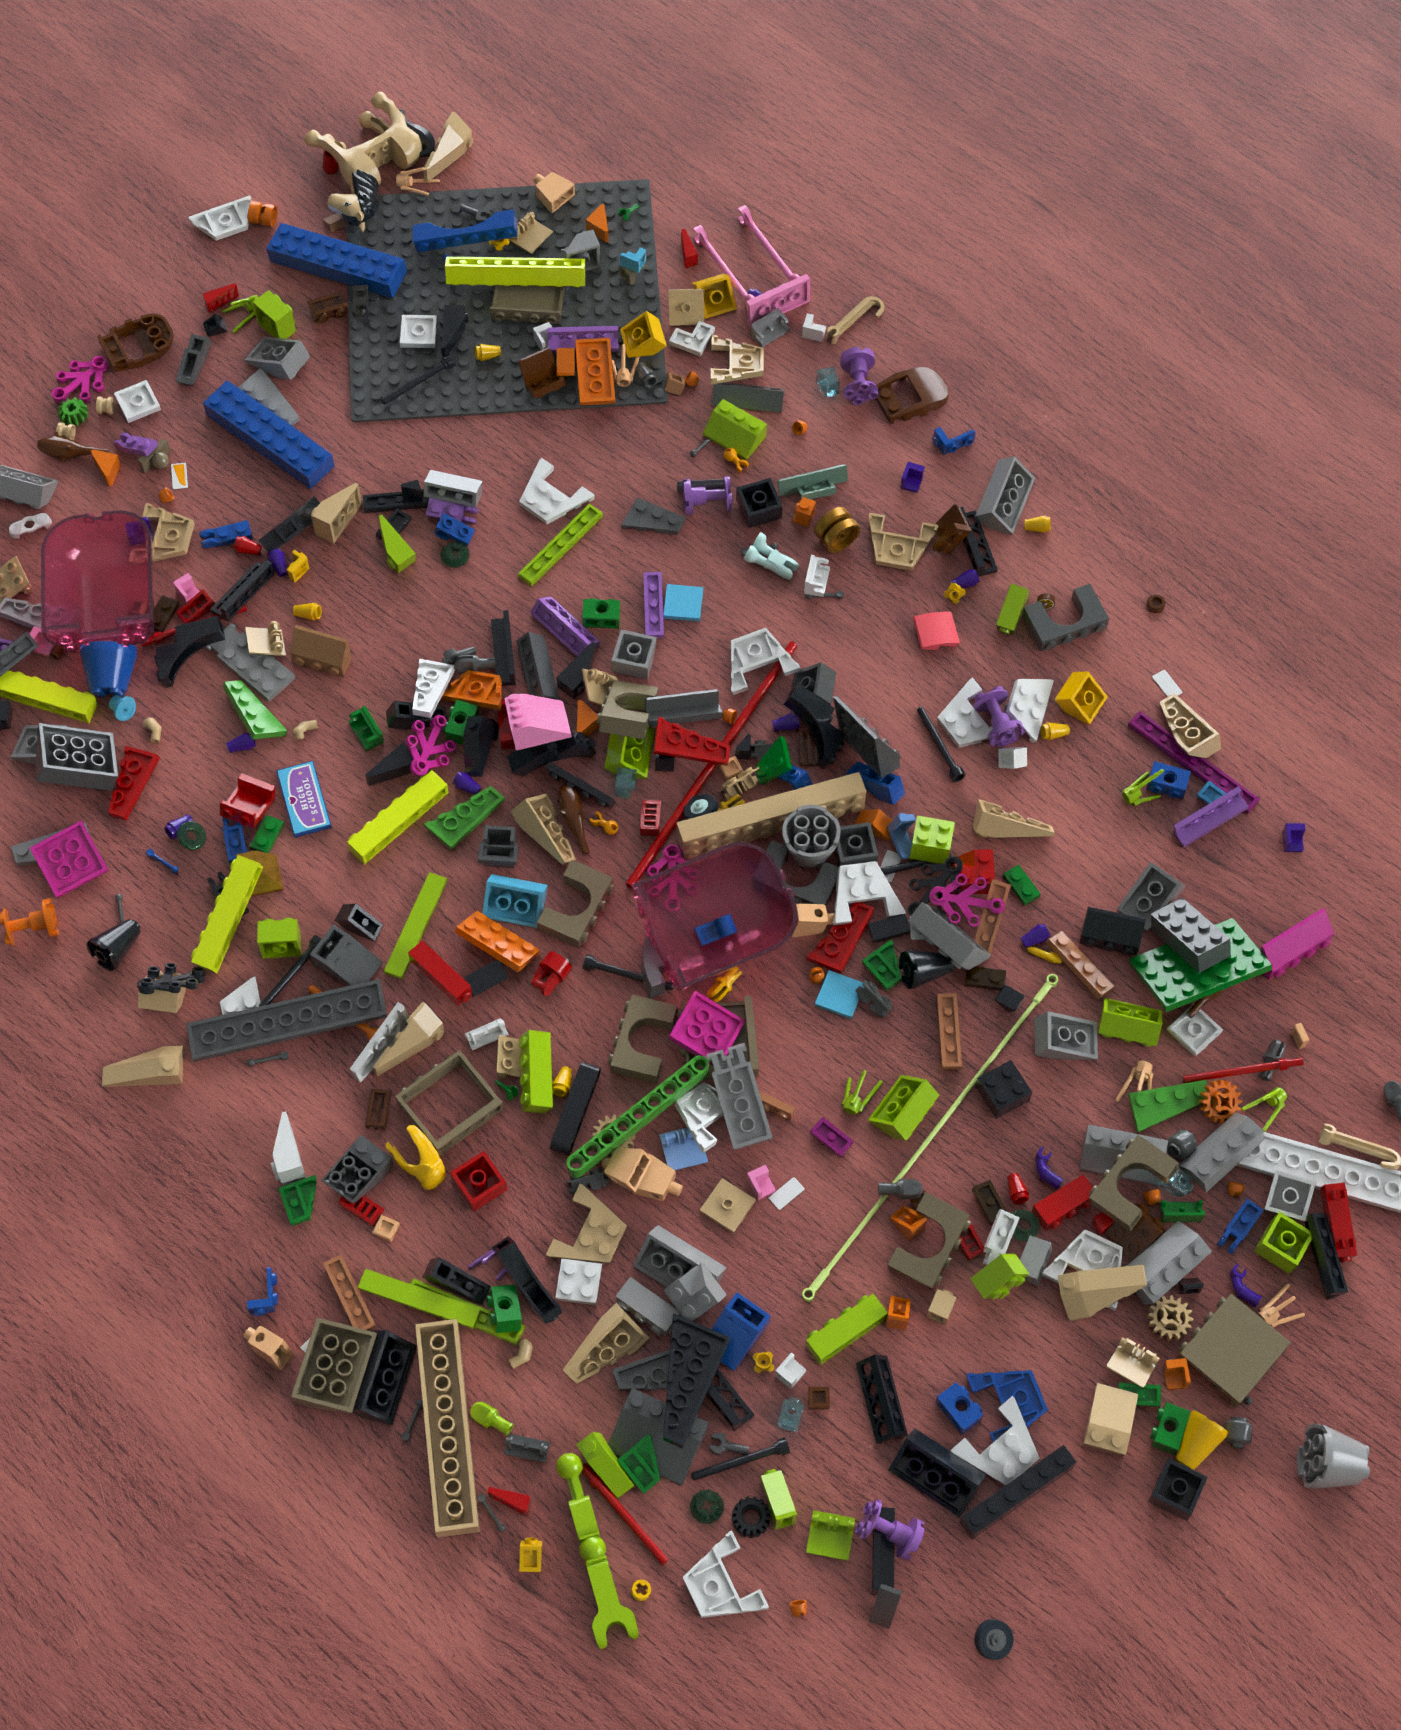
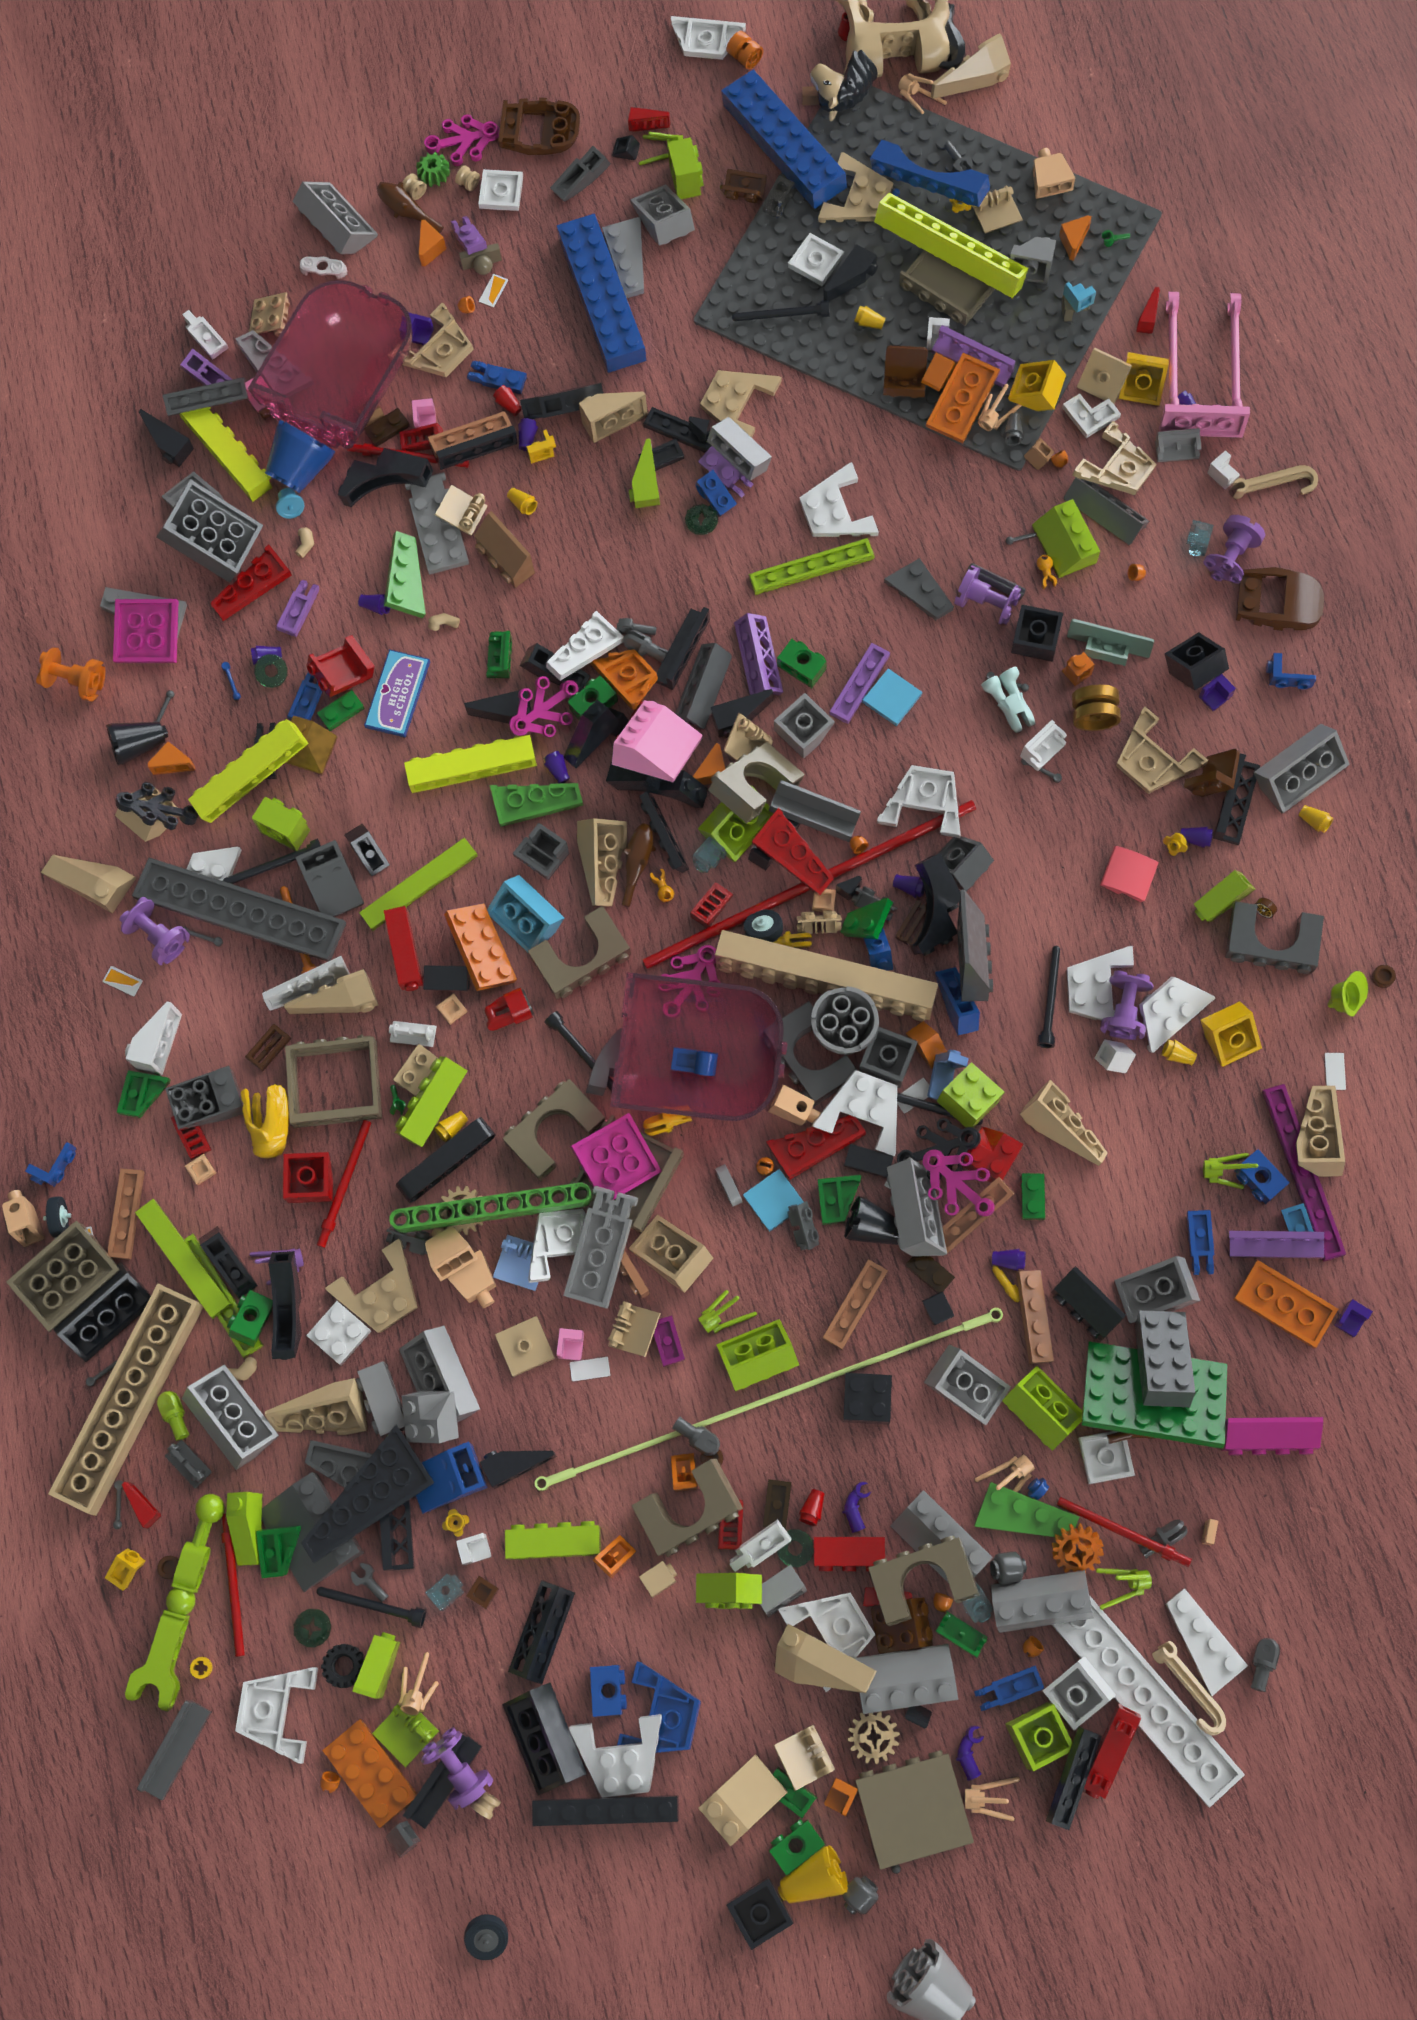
camera: 40 degrees right, 10 degrees up
(155, 943) = (170, 760): none -> orange slope
(181, 781) = (297, 609): none -> medium lavender hinge
(225, 1128) = (122, 981): none -> sticker
(233, 582) = (468, 431): none -> nougat plate
(237, 1074) = (166, 942): none -> medium lavender piece
(296, 1327) = (56, 1216): none -> black wheel
(415, 455) = (730, 393): none -> tan wing
(426, 272) = (864, 196): none -> tan wing
(503, 1000) = (451, 1009): none -> light nougat tile
(515, 1207) = (328, 1224): none -> red bar
(537, 1391) = (229, 1416): none -> light grey slope
(564, 1533) = (167, 1567): none -> reddish brown tile
(664, 1662) = (174, 1749): none -> dark grey panel
(776, 1293) = (508, 1465): none -> black slope
(792, 1073) = (671, 1253): none -> tan slope
(800, 1002) = (728, 1185): none -> light grey beam
(801, 1142) = (633, 1329): none -> tan hinge
(823, 1504) = (412, 1701): none -> light nougat plant
(824, 1582) = (370, 1773): none -> orange plate
(885, 462) = (1197, 661): none -> black brick
(928, 1546) = (485, 1805): none -> tan wheel
(1141, 627) = (1349, 994): none -> lime piece
(1157, 846) = (1200, 1239): none -> blue hinge
(1164, 1078) = (1037, 1488): none -> blue plate
(1243, 855) = (1286, 1304): none -> orange plate
(1357, 1116) = (1210, 1650): none -> white wing

